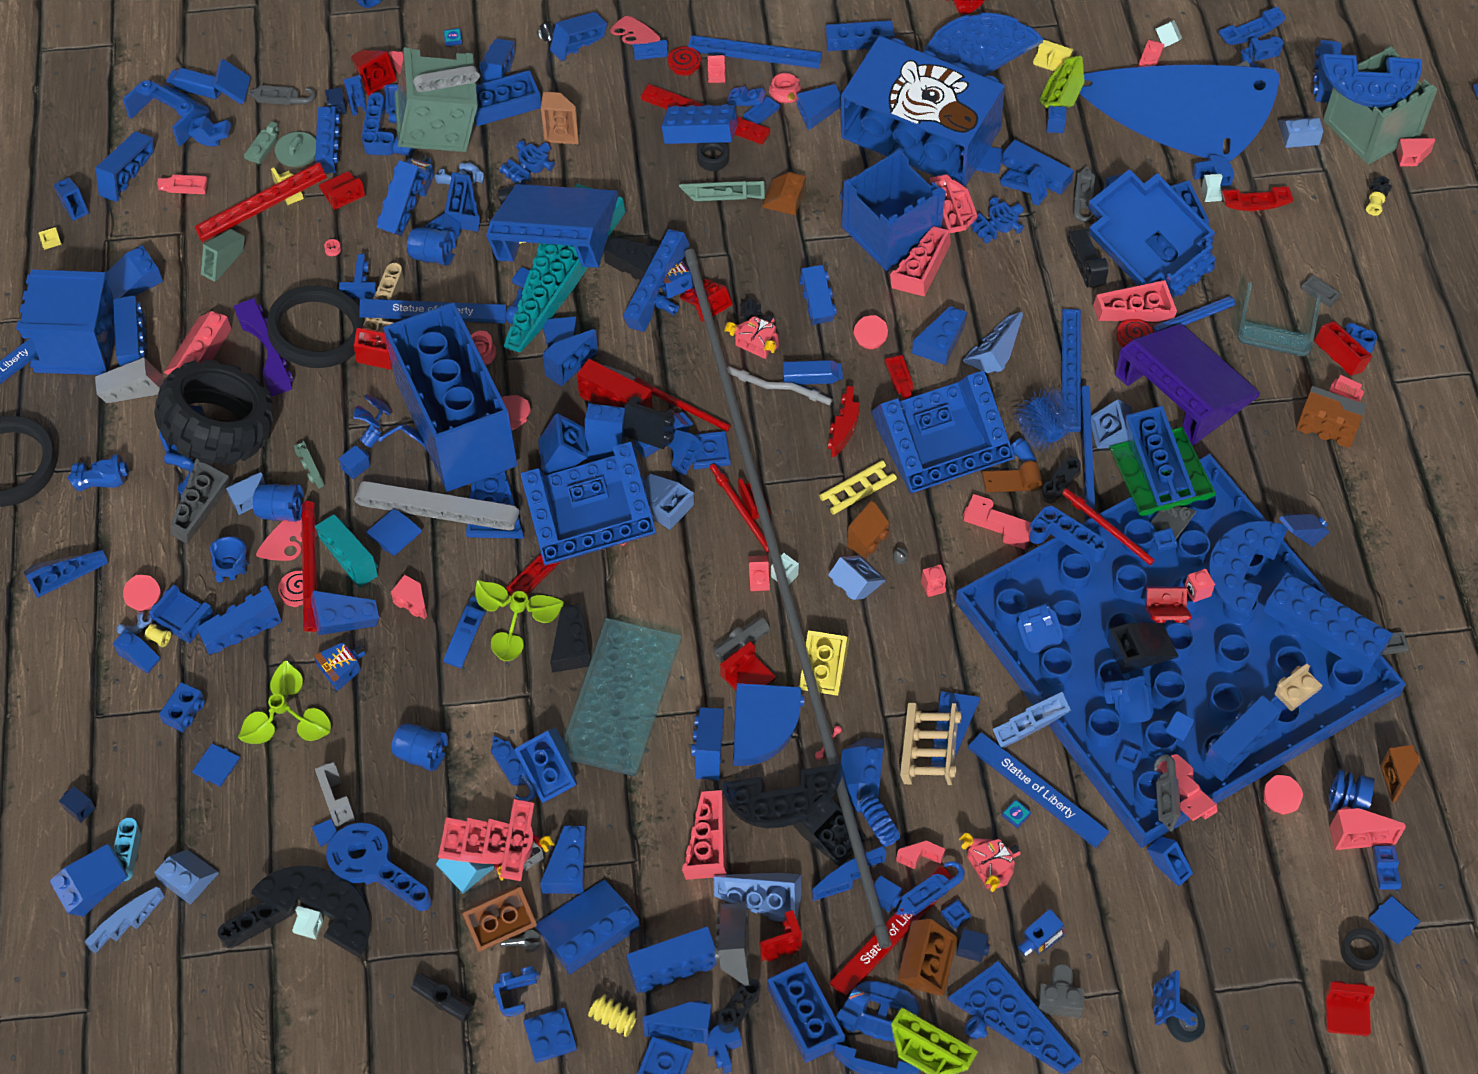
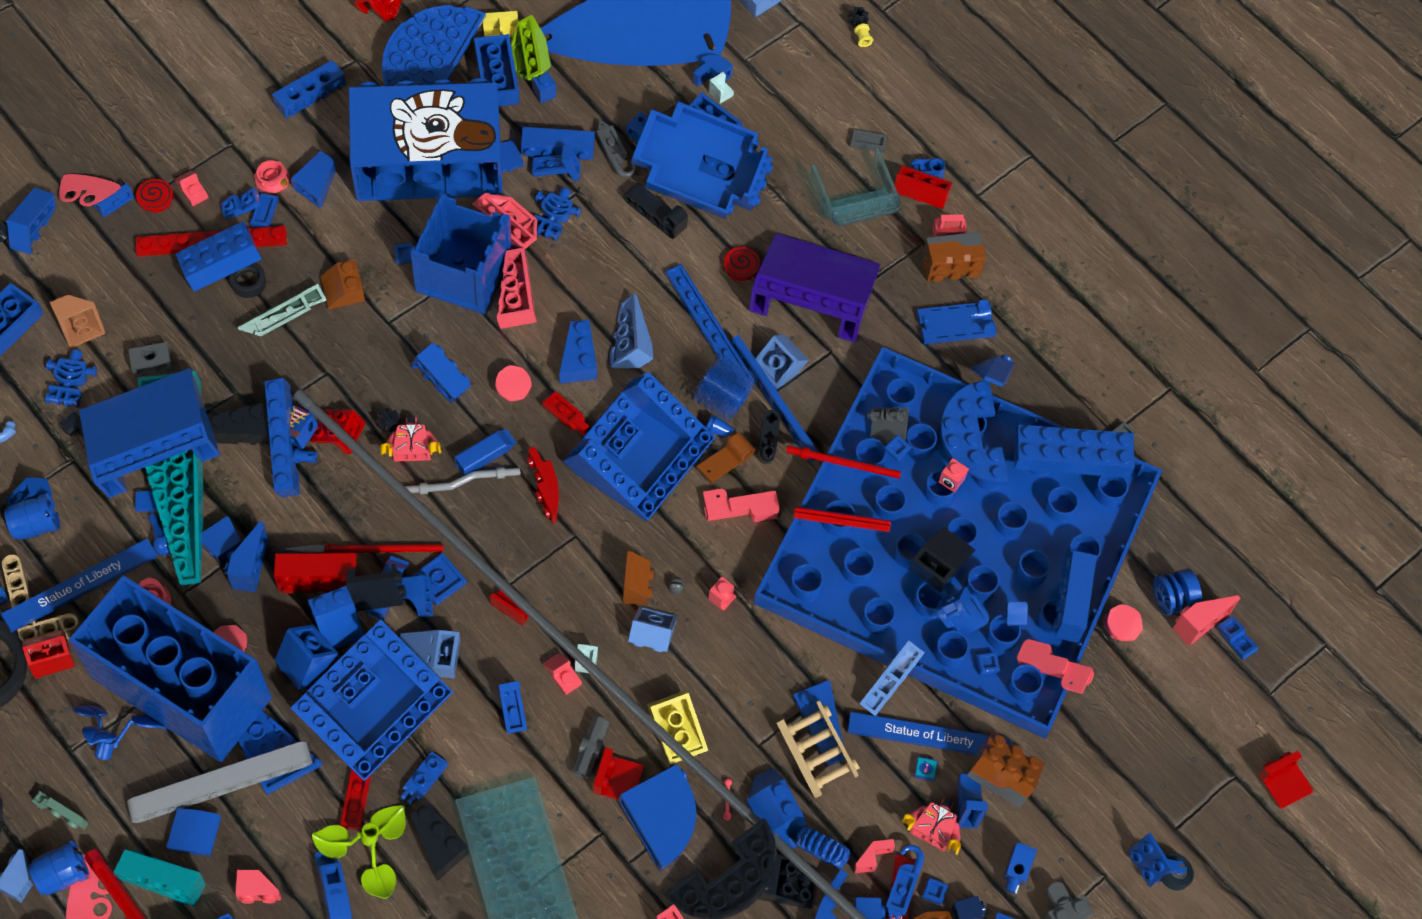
camera: 40 degrees left, 5 degrees up
(354, 462) = (105, 783): blue brick -> none
(461, 202) = (31, 456): blue wedge -> none
(474, 170) = (16, 414): medium blue piece -> none
(594, 590) = (424, 778): none -> blue hinge
(597, 176) = (159, 364): none -> dark grey brick
(699, 572) = (512, 707): none -> blue bracket
(708, 743) = (627, 863): blue wedge -> none
(722, 481) = (471, 603): red bar -> none
(756, 51) = (217, 152): blue tile -> none
(853, 496) = (594, 529): light yellow bar -> none
(1025, 87) = (497, 66): none -> blue brick
(1034, 858) = (969, 802): none -> blue arch
(1039, 628) = (846, 589): blue piece -> none
(1074, 570) = (842, 519): none -> red axle
(1083, 848) = (1005, 769): none -> dark orange piece
(1092, 546) = (820, 489): blue beam -> none
(1143, 302) = (731, 231): coral wedge -> none
(1159, 464) = (850, 381): piece -> none
(1167, 603) = (940, 509): red bracket -> none
(1168, 793) = (1046, 680): dark grey plate -> none
(1170, 860) = (1073, 734): blue slope -> none
(1197, 314) = (780, 219): blue axle -> none
(1257, 201) = (766, 80): red slope -> none
(1297, 687) = (1086, 523): tan bracket -> none
(1300, 474) = (956, 322): none -> blue piece
(1369, 936) = (1273, 711): black tyre -> none
(1394, 920) = (1269, 680): blue piece -> none
(1398, 769) = (1200, 549): dark orange slope -> none

